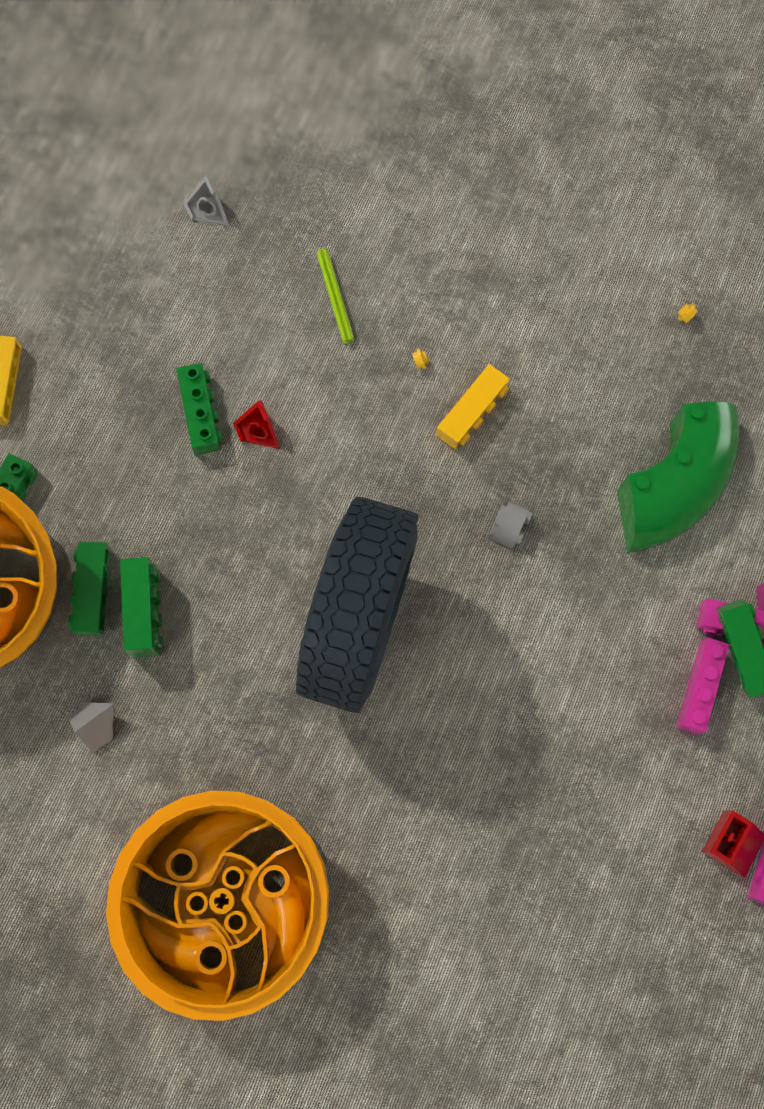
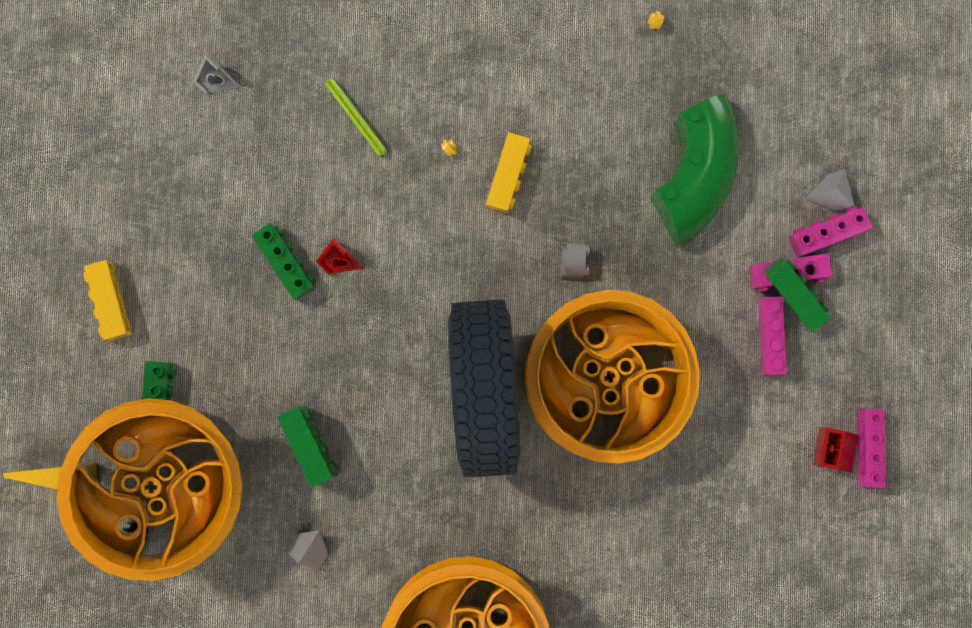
camera: 20 degrees left, 10 degrees up
(90, 589) = (259, 445): green brick -> none
(546, 605) = (647, 419): none -> light orange wheel

